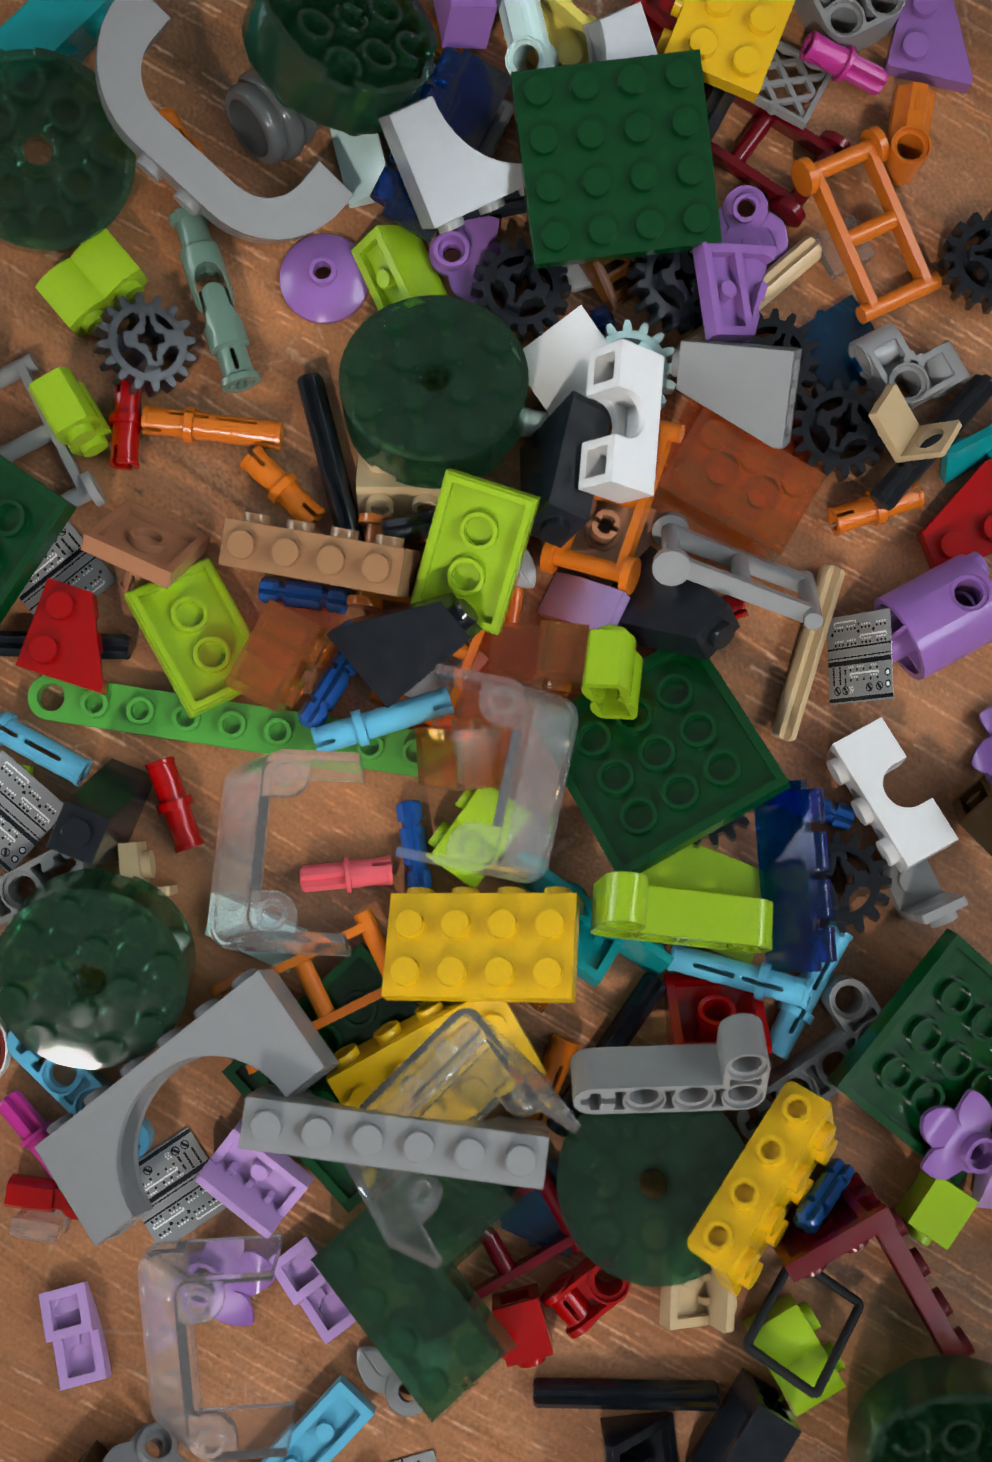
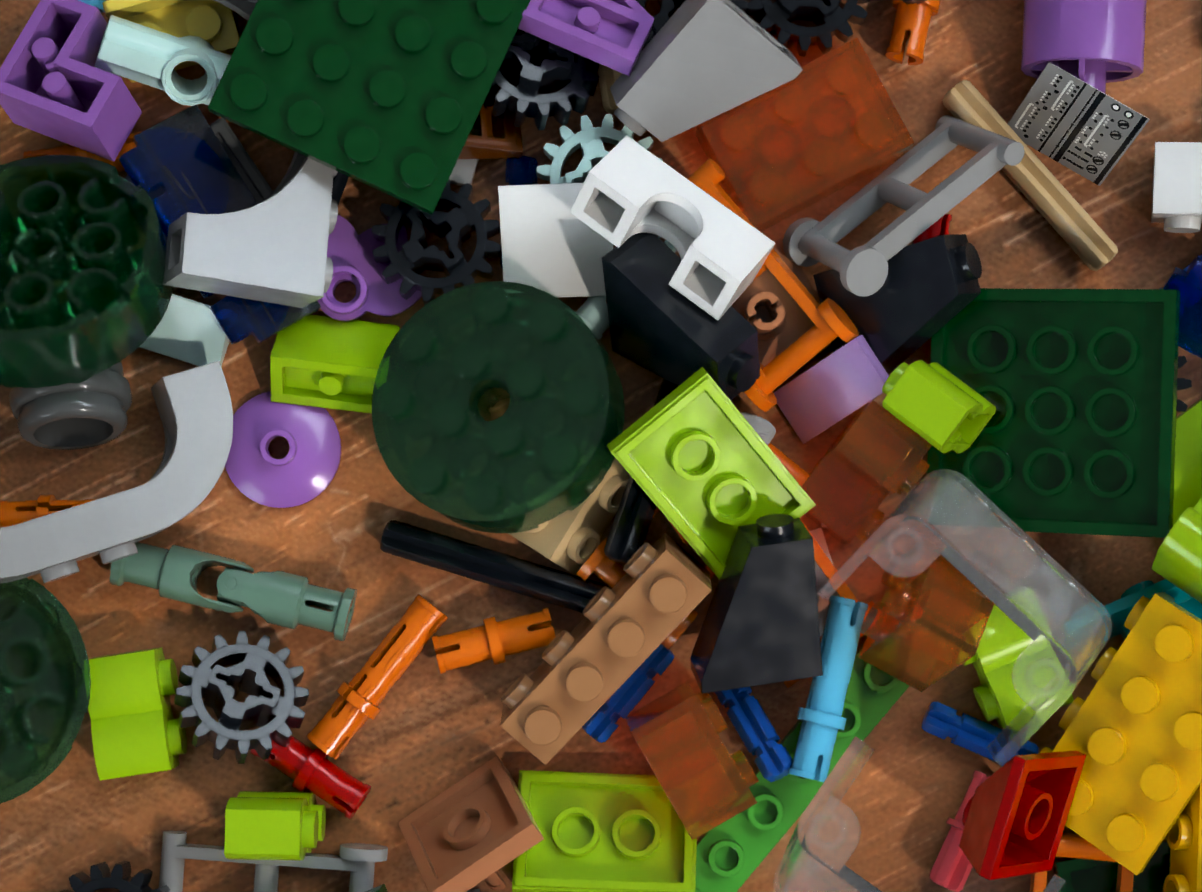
camera: 55 degrees left, 0 degrees up
(375, 894) = (1020, 814): none -> red slope

